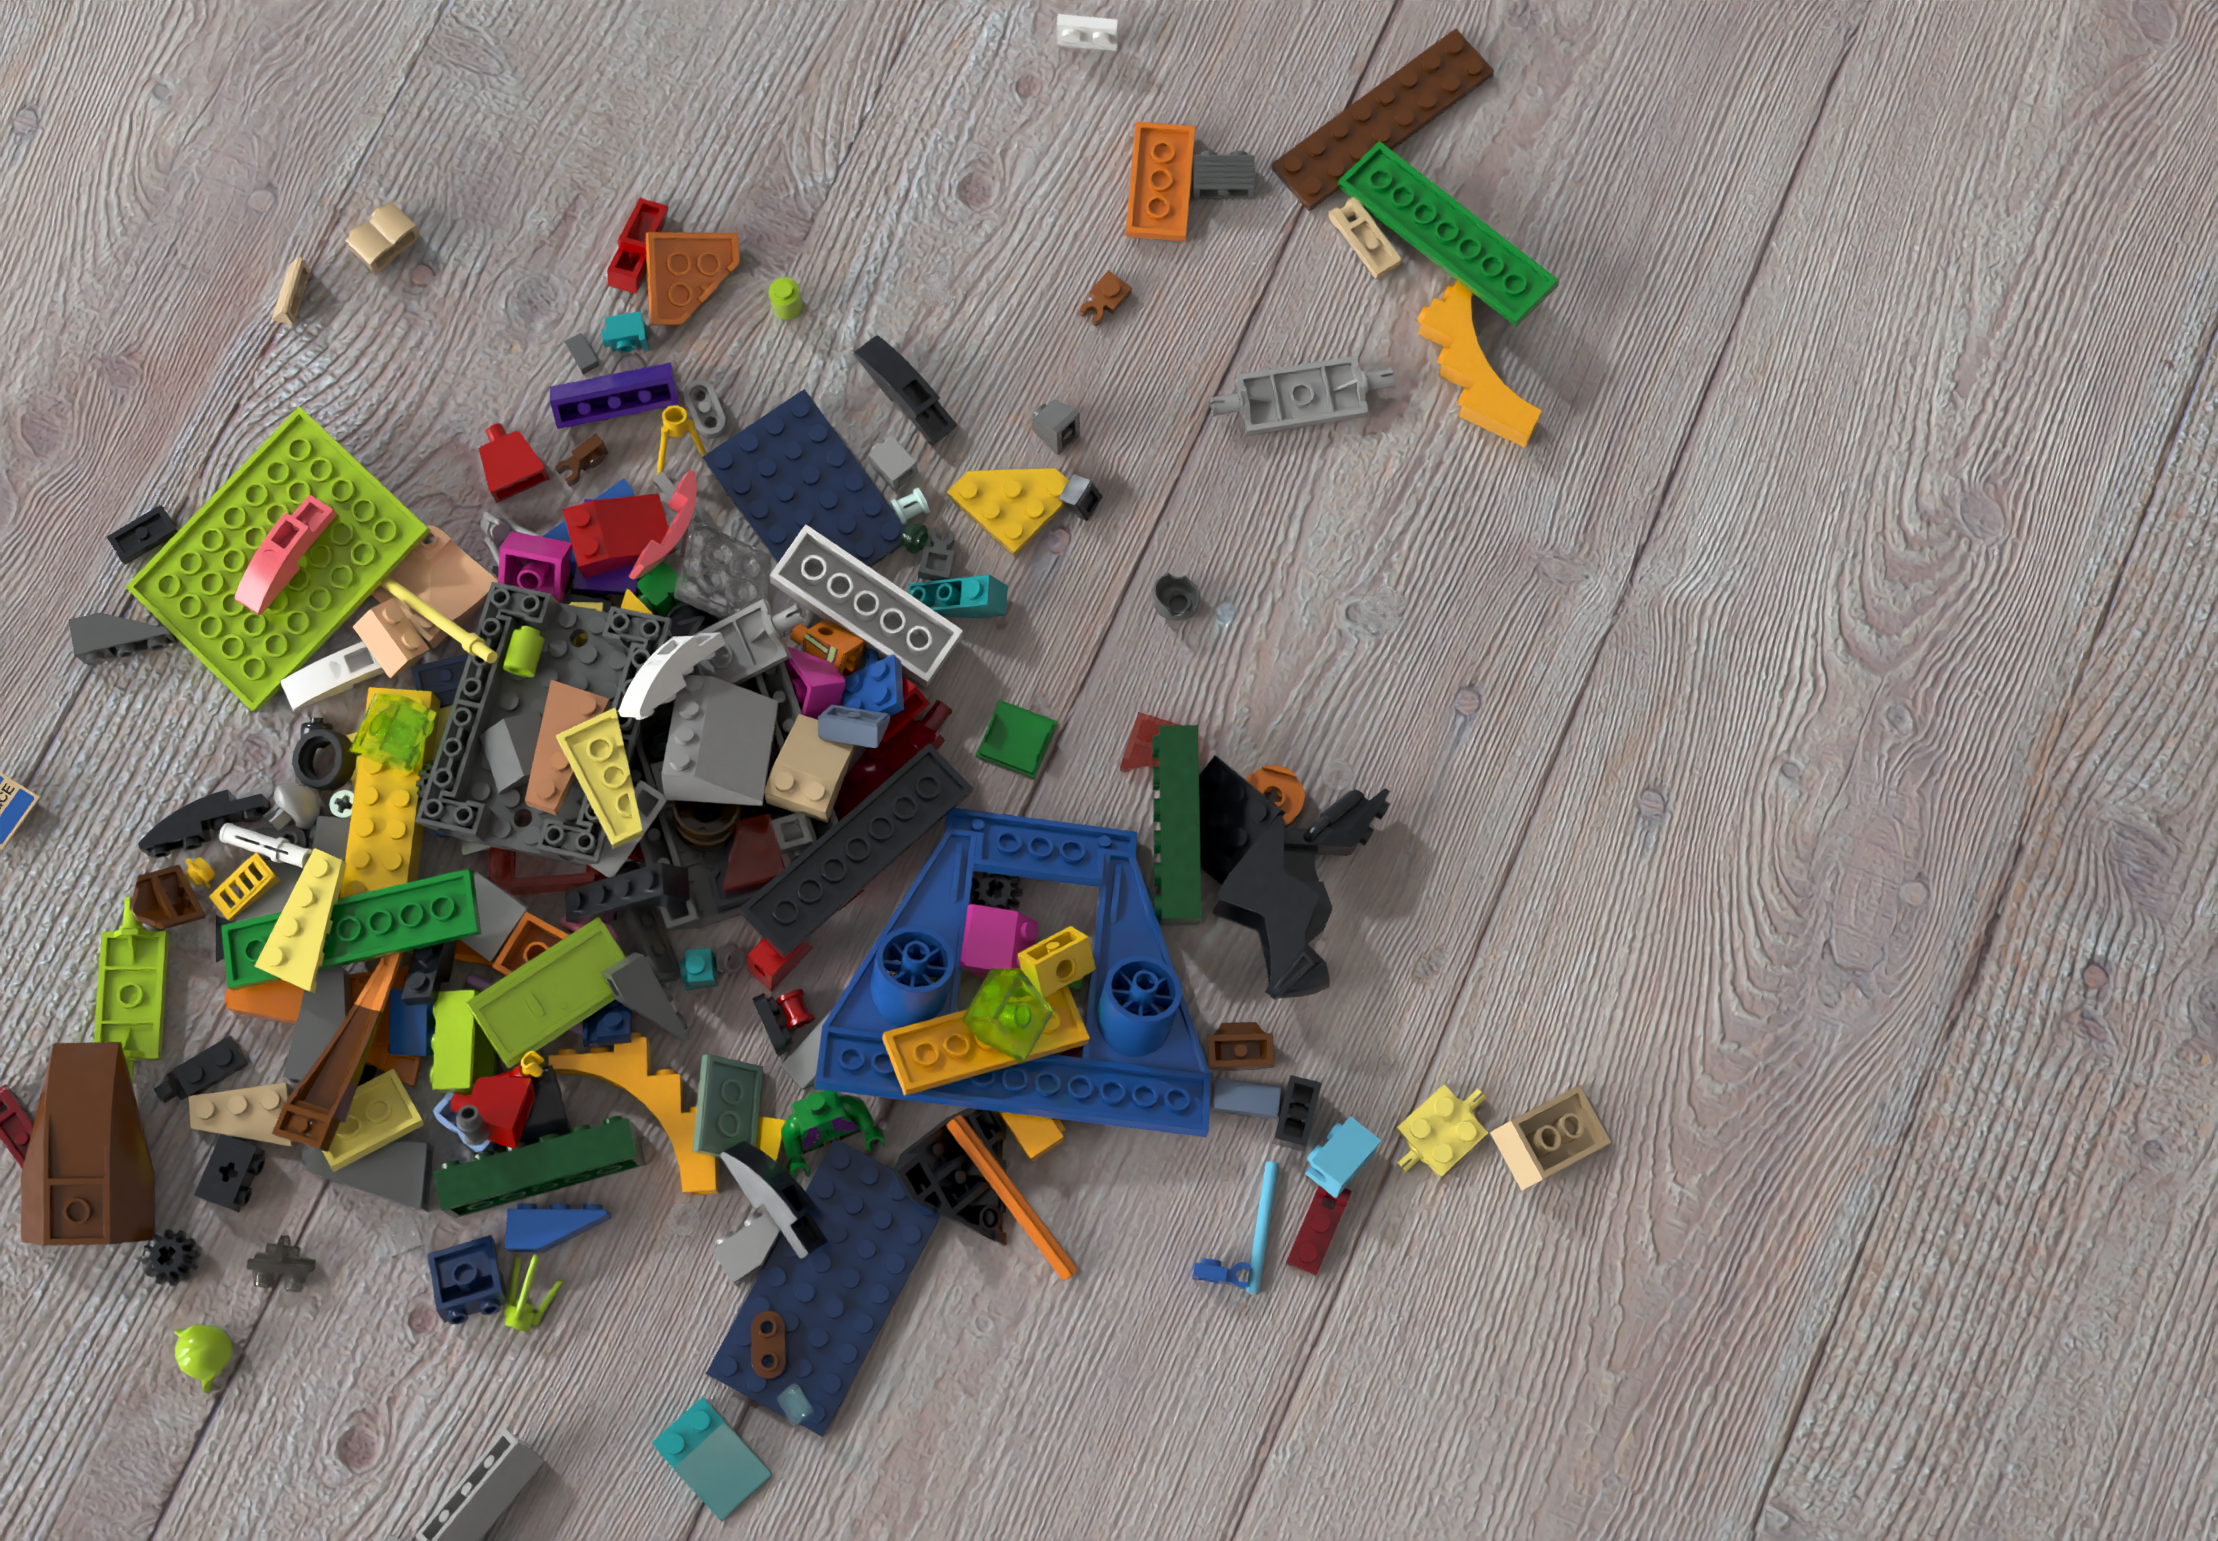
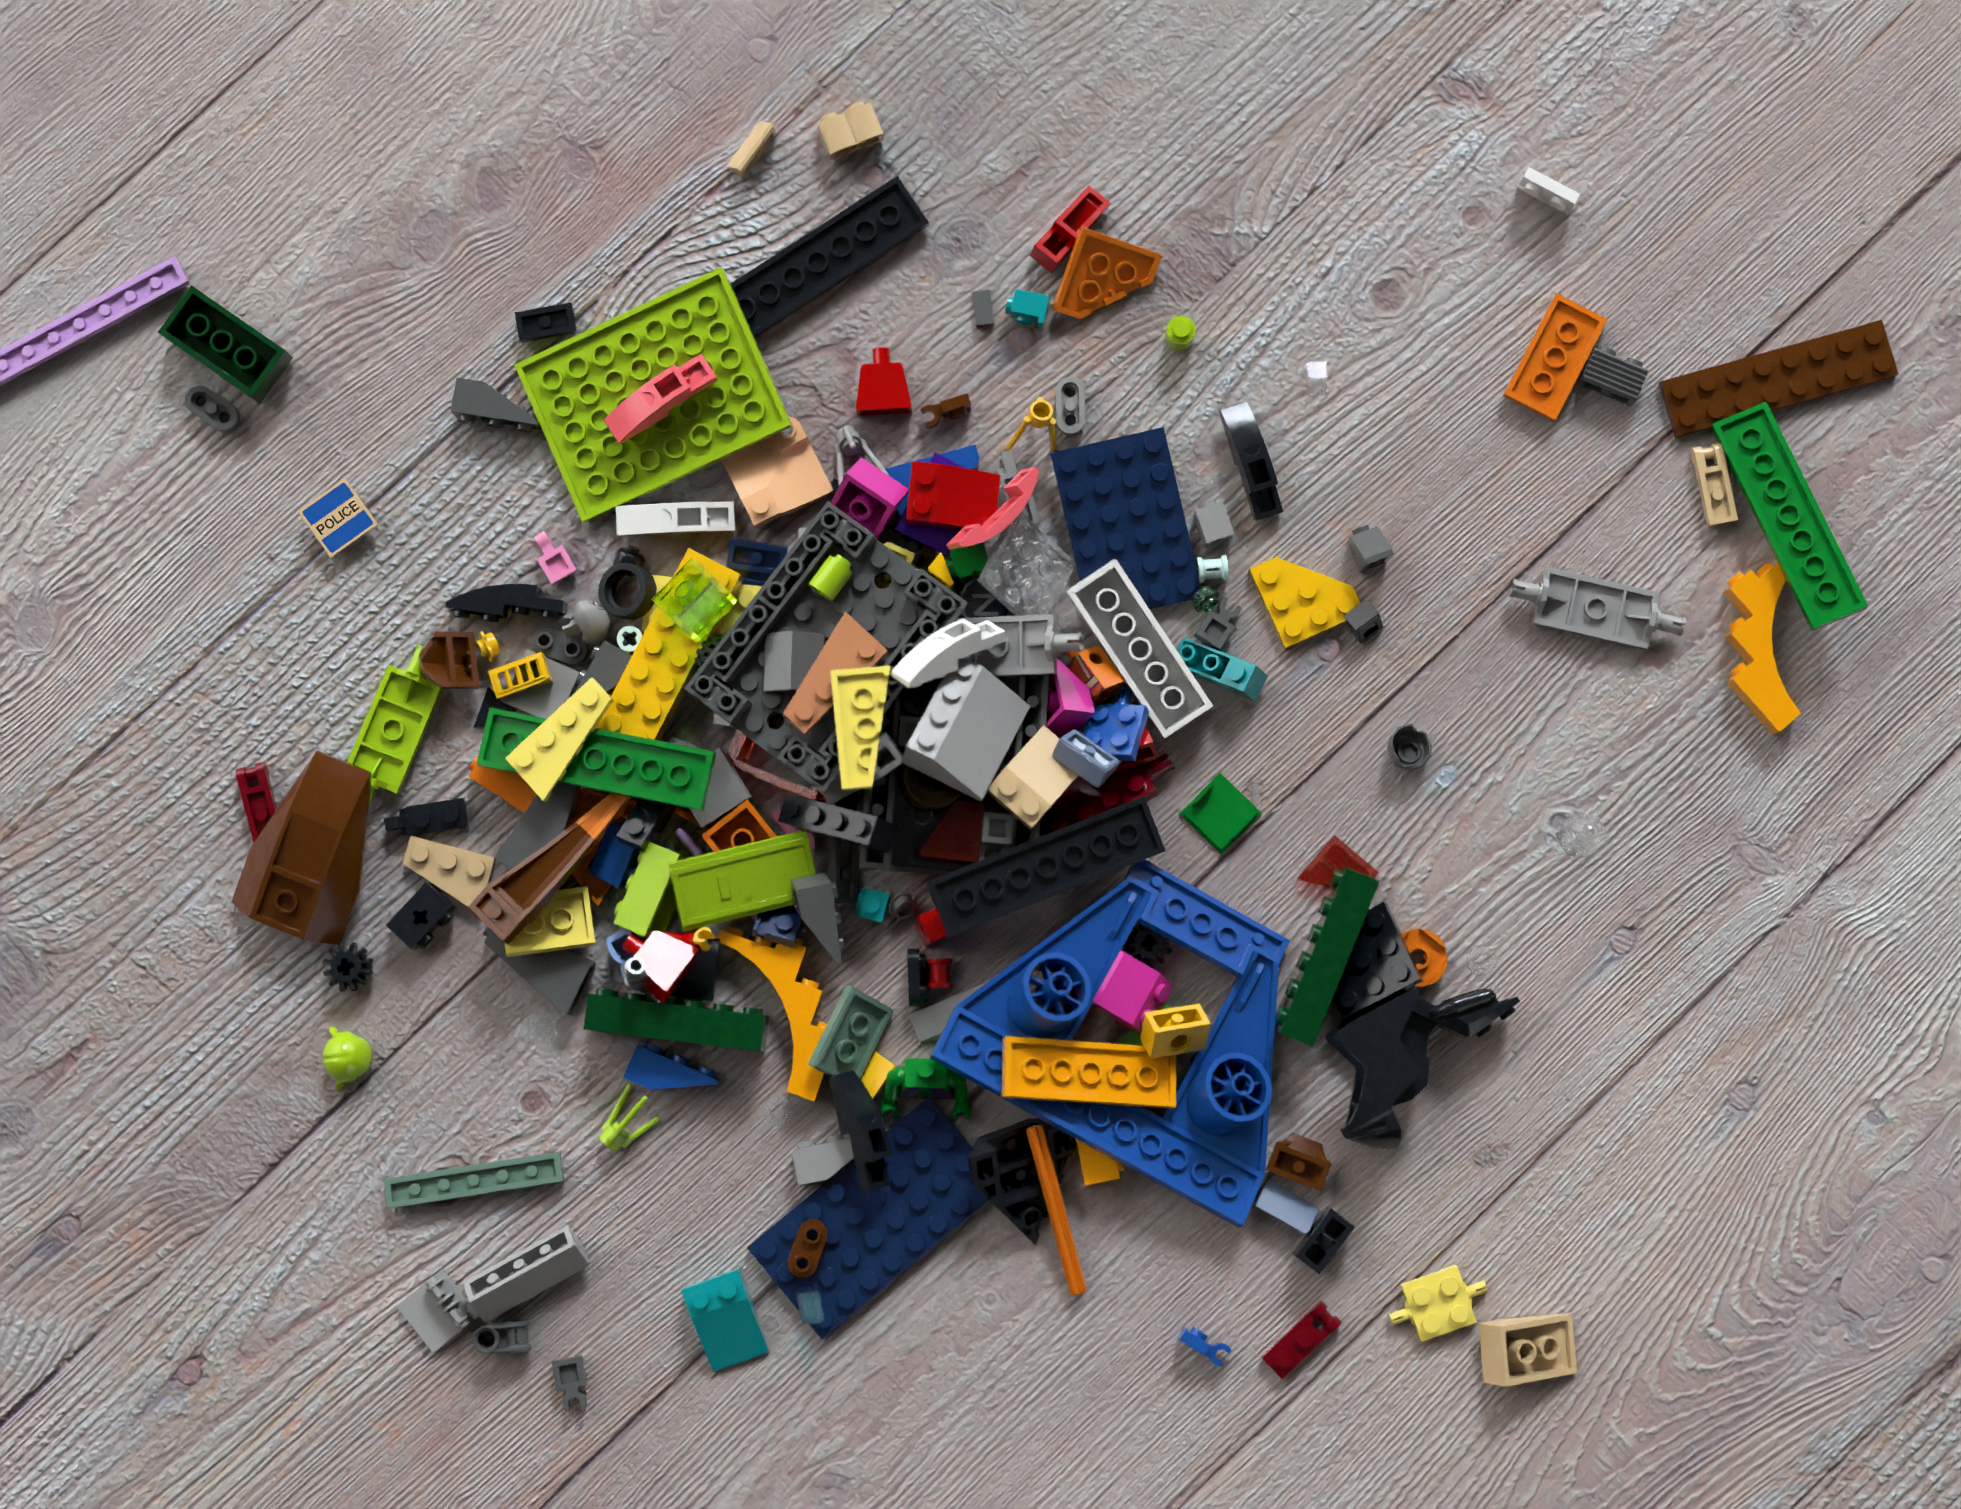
camera: 25 degrees right, 10 degrees up
(236, 836) = (560, 656): white pin -> none
(238, 761) = (555, 561): none -> bright pink plate
(282, 1261) = (436, 1008): clear smoke hips -> none
(387, 1424) = (473, 1179): none -> sand green plate
(391, 637) = (723, 510): light nougat brick -> none
(406, 361) = (828, 255): none -> black plate
(467, 1280) = (582, 1088): dark blue plate -> none
(470, 642) = (789, 551): light yellow bar -> none
(614, 395) = (996, 363): dark purple brick -> none
(1008, 1013) = (1116, 1061): clear neon green slope -> none
(1106, 295) = (1464, 444): dark orange plate -> none
(1262, 1227) = (1254, 1319): medium azure bar -> none
(1342, 1156) = (1345, 1293): medium azure brick -> none

